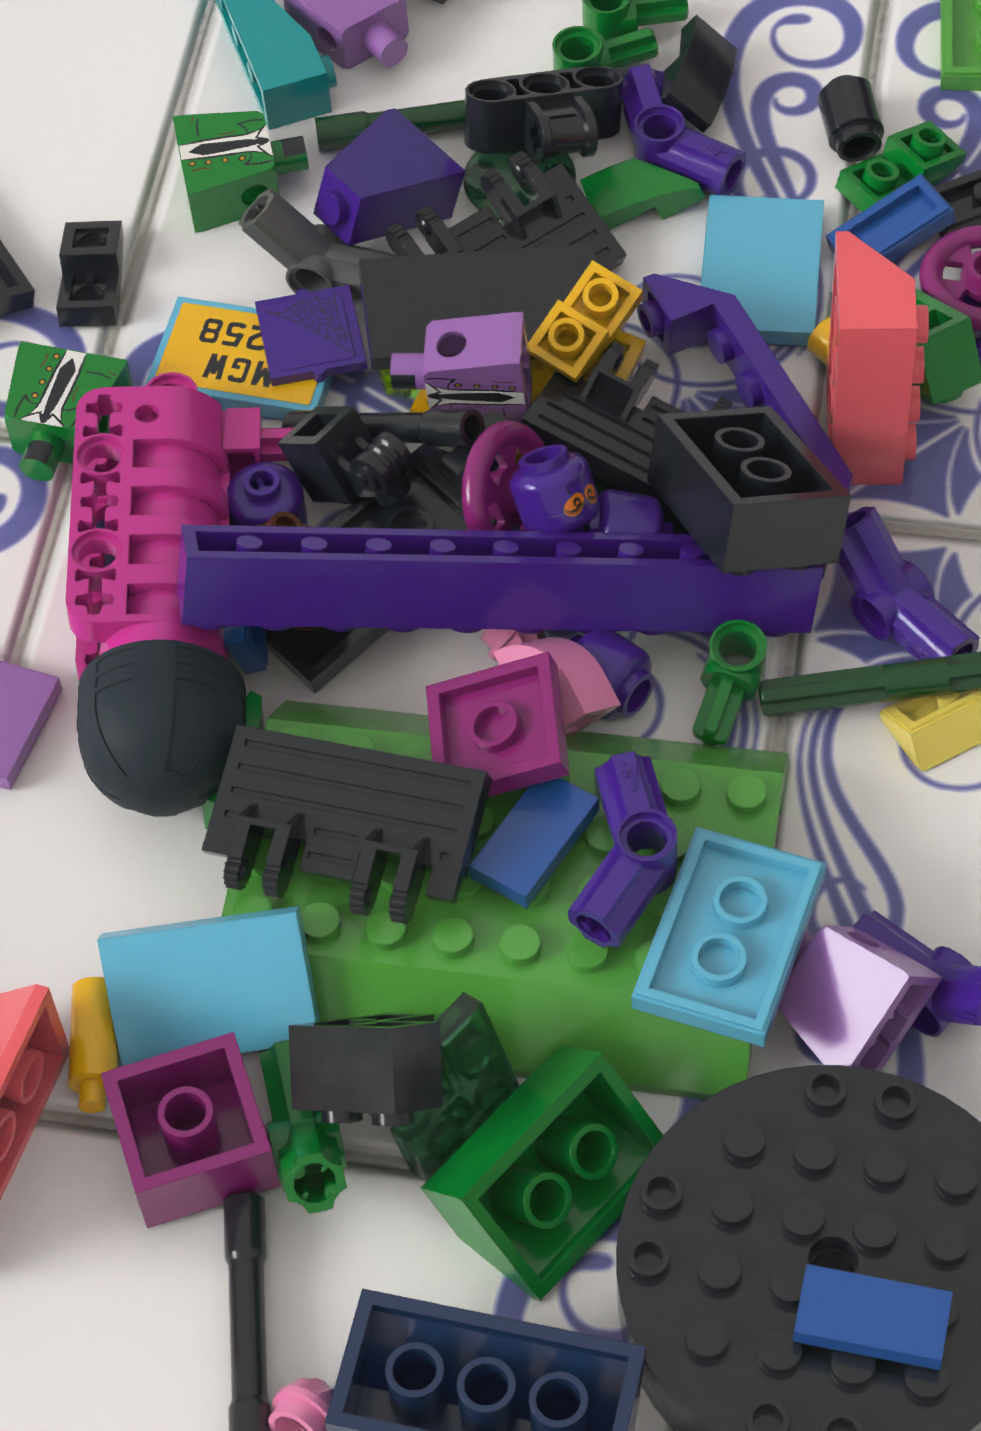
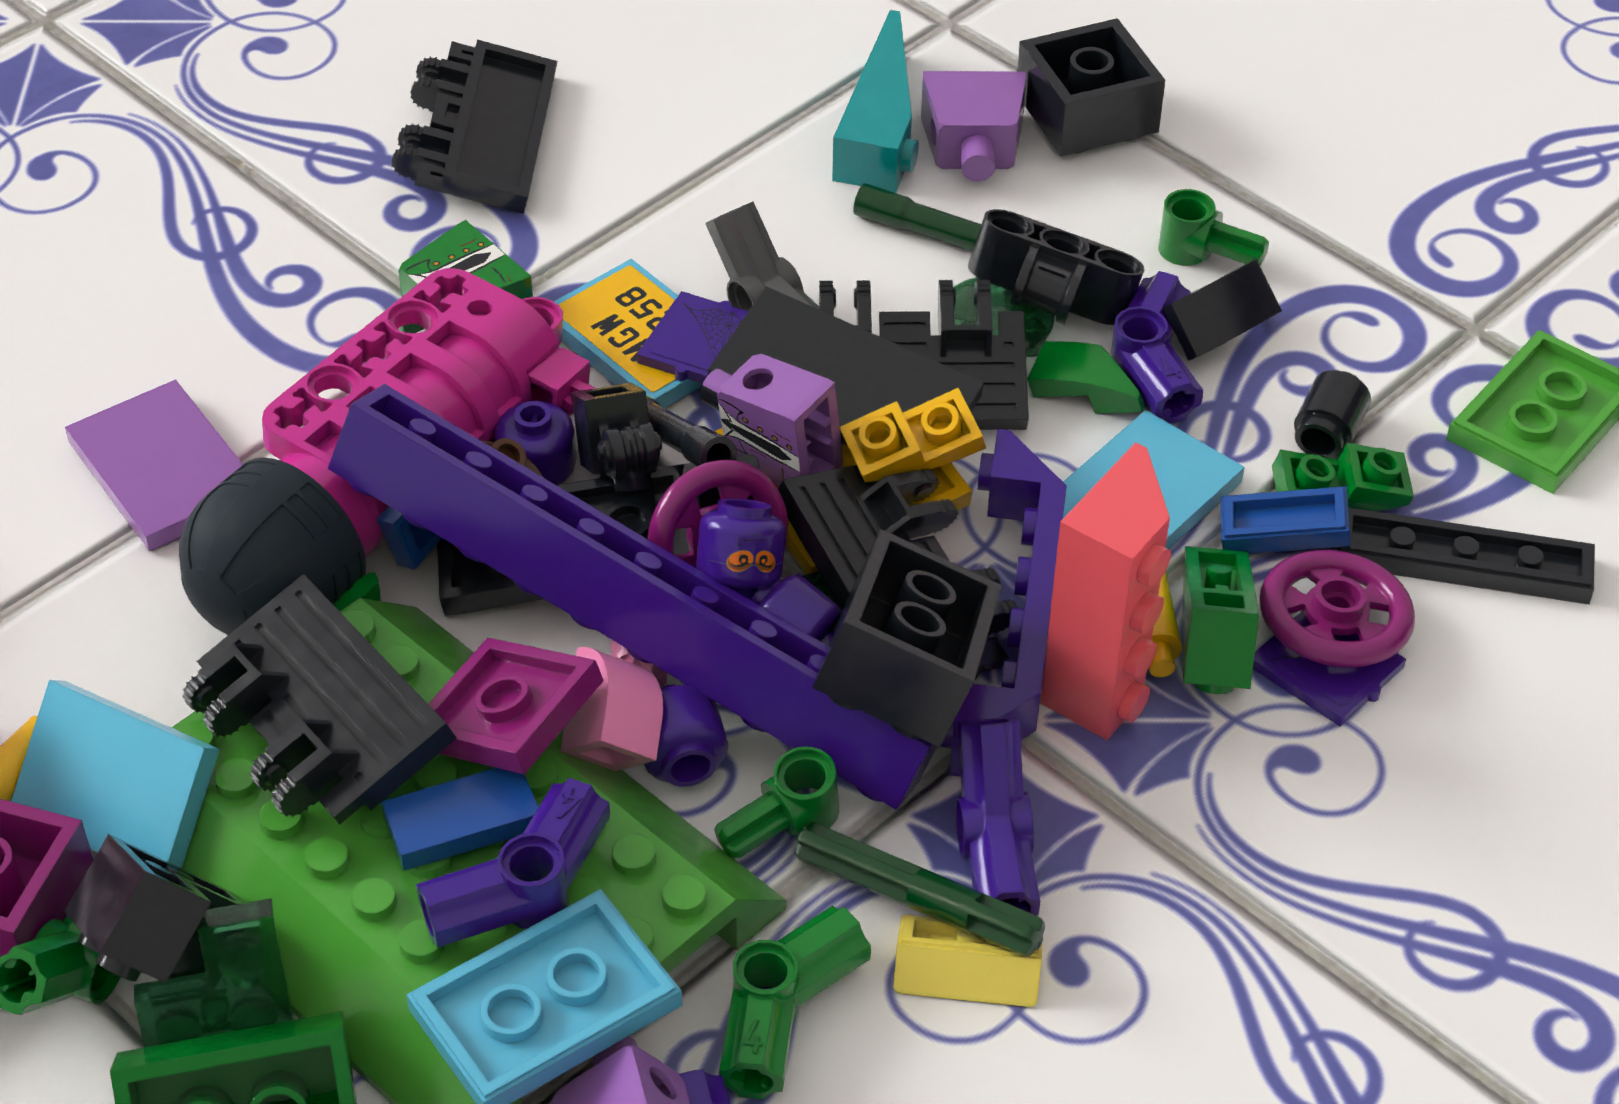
camera: 30 degrees right, 10 degrees down
(90, 273) = (589, 208): black slope -> none
(230, 163) = (772, 173): green torso -> none
(386, 180) = (866, 241): dark purple slope -> none
(585, 47) = (1137, 237): green axle -> none
(863, 853) = (797, 970): none -> green piece

